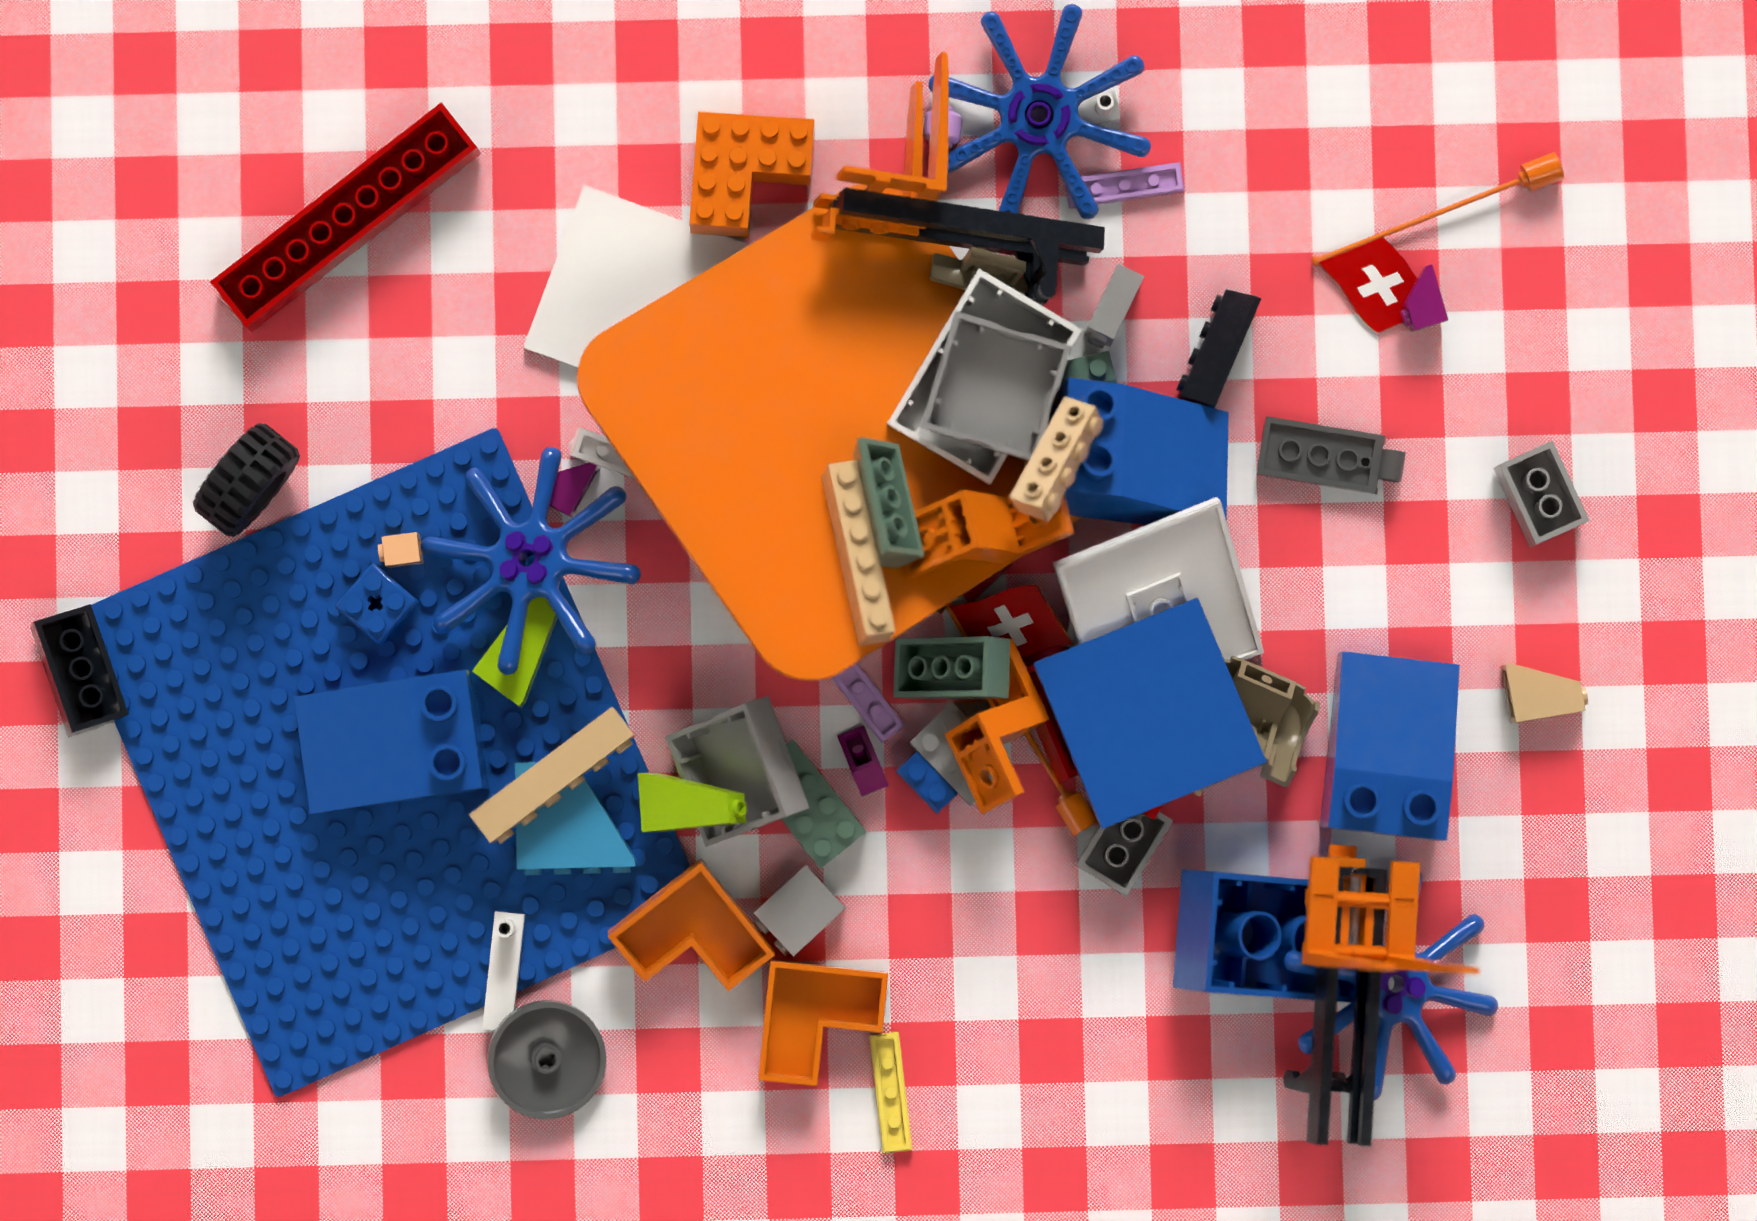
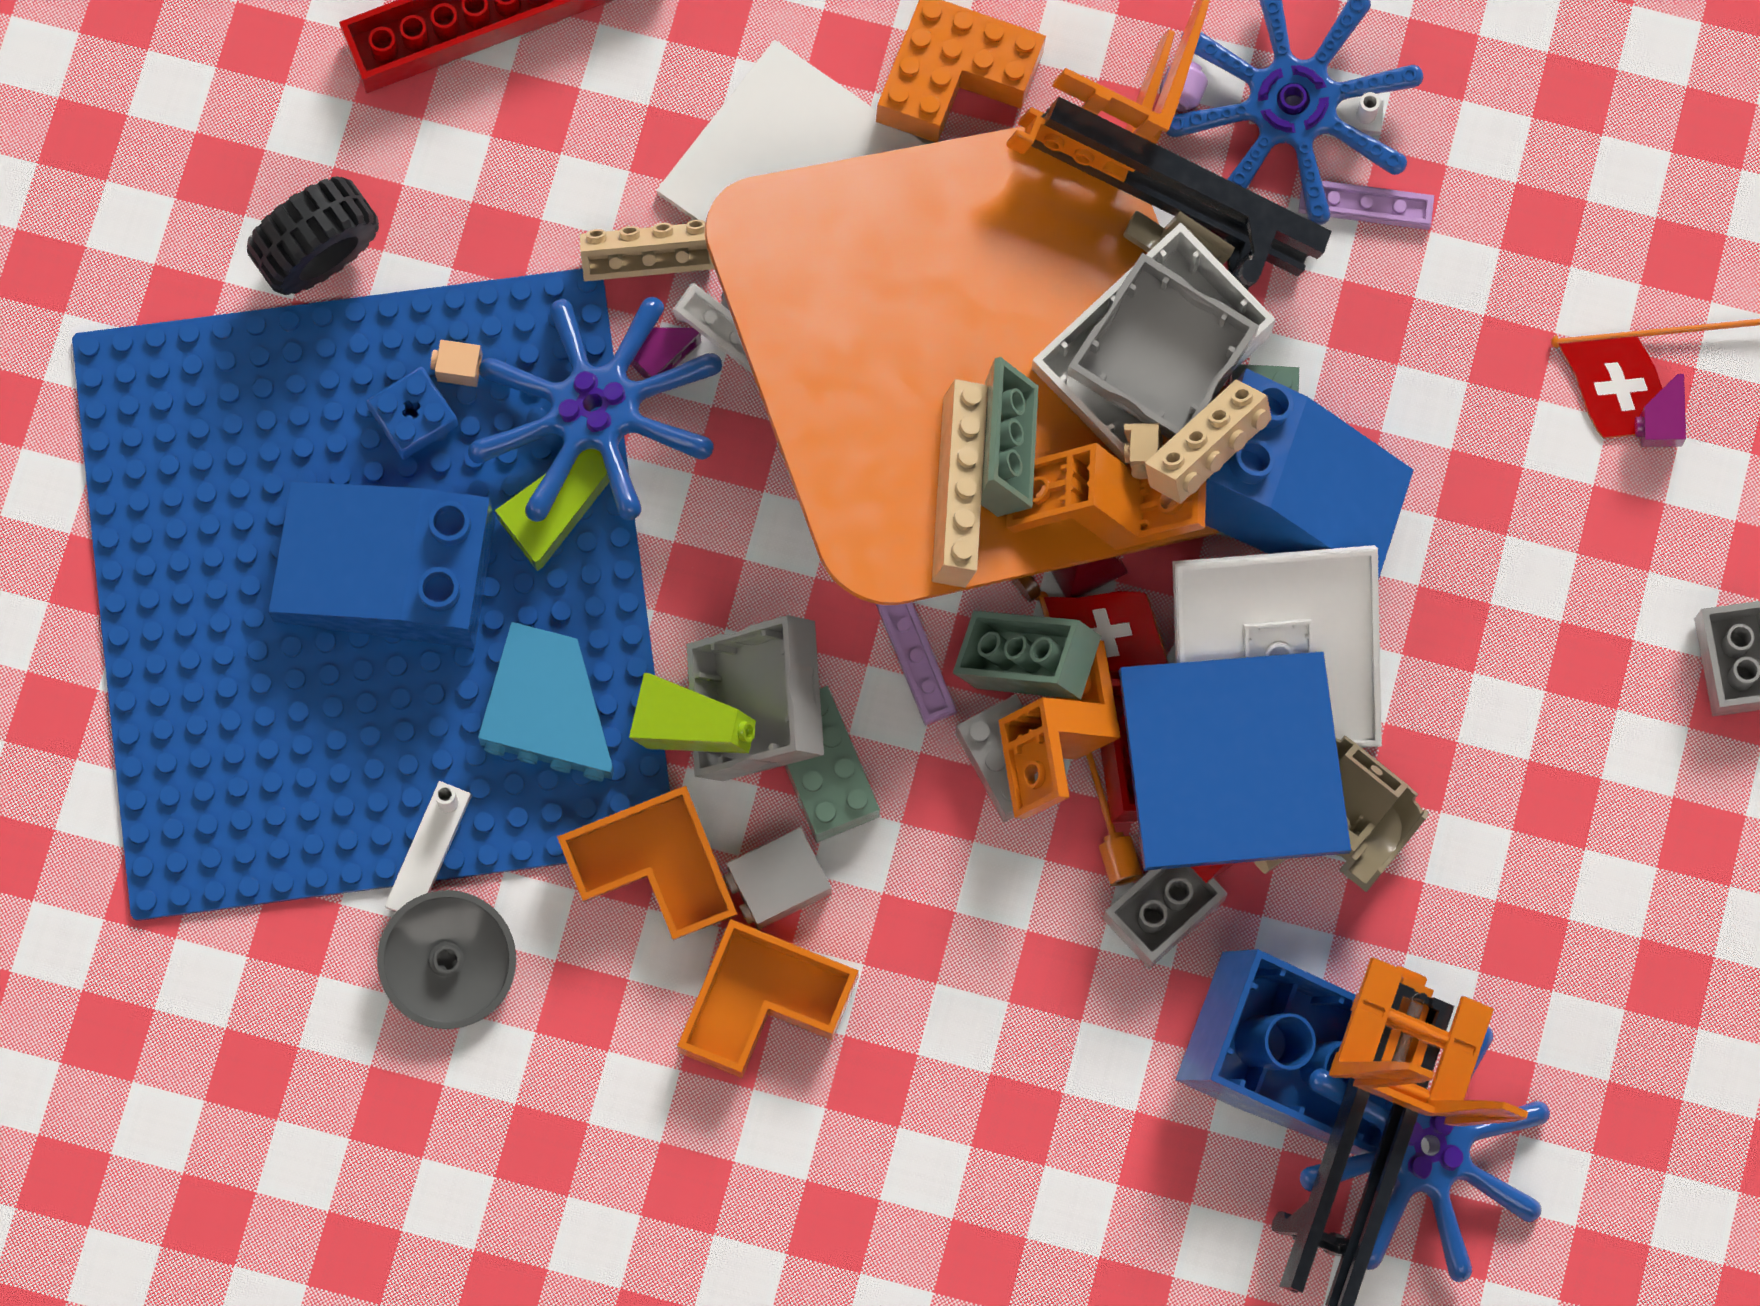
camera: 15 degrees right, 10 degrees down
(79, 670) = (64, 392): black slope -> none
(528, 406) = (644, 251): none -> tan brick
(552, 775) = (550, 643): tan brick -> none
(862, 760) = (898, 736): magenta slope -> none
(890, 1092) = (822, 1112): light yellow tile -> none
(926, 782) = (962, 778): blue brick -> none
(1002, 476) = (1142, 444): none -> tan brick
(1113, 306) = (1317, 322): light grey brick -> none
(1219, 348) = (1425, 398): black slope -> none
(1327, 456) = (1511, 552): dark grey hinge -> none
(1391, 747) = (1495, 887): blue slope -> none
(1540, 694) = (1682, 879): tan slope -> none

